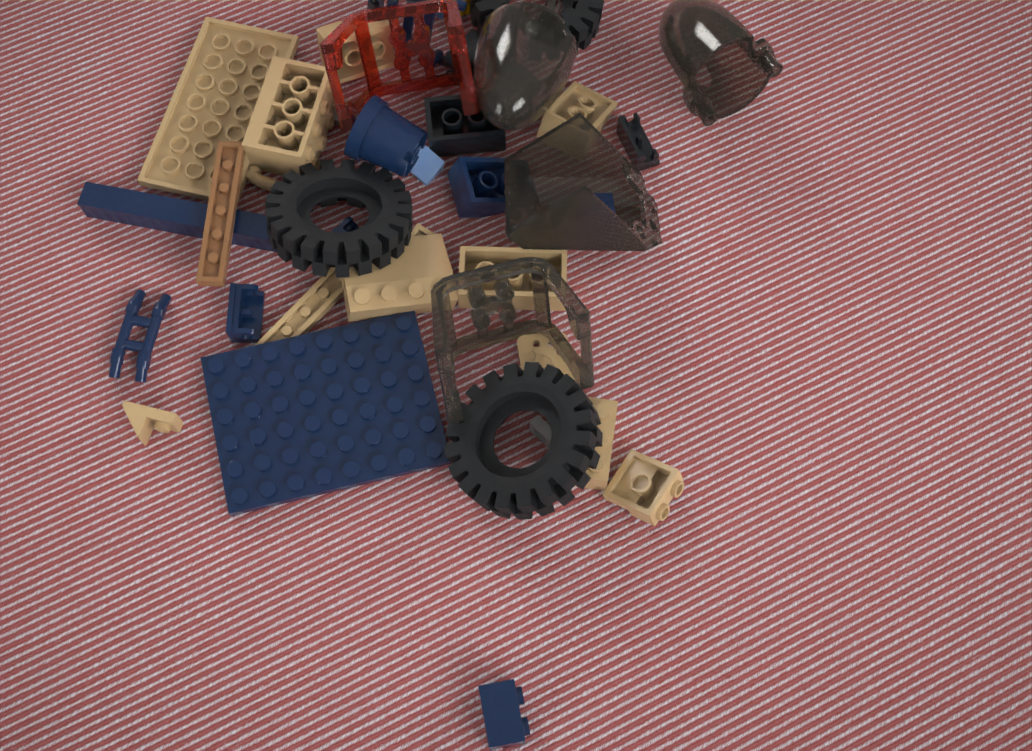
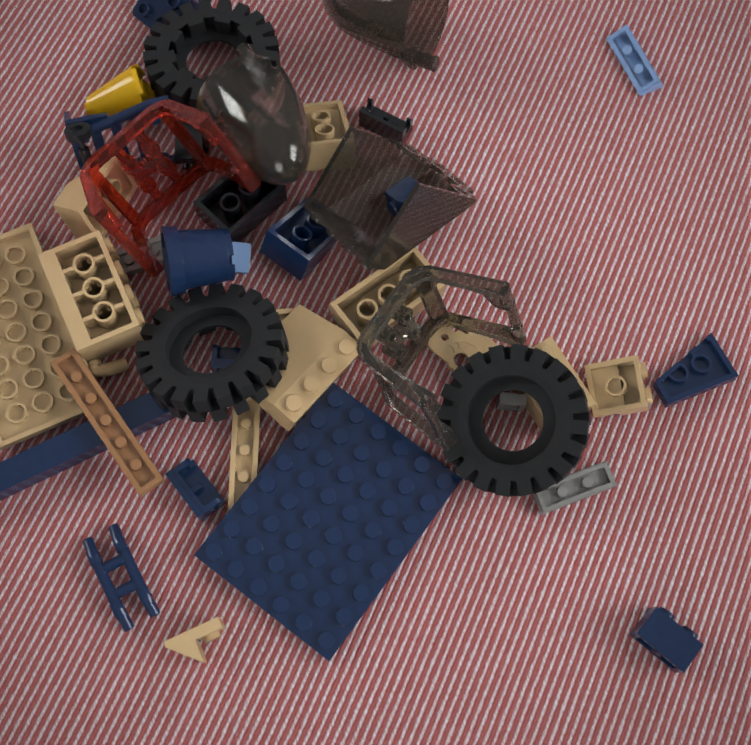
camera: 45 degrees left, 5 degrees up
(537, 540) = (576, 488): none -> light grey tile
(727, 530) = (698, 372): none -> dark blue wing
(907, 238) = (634, 61): none -> light blue slope

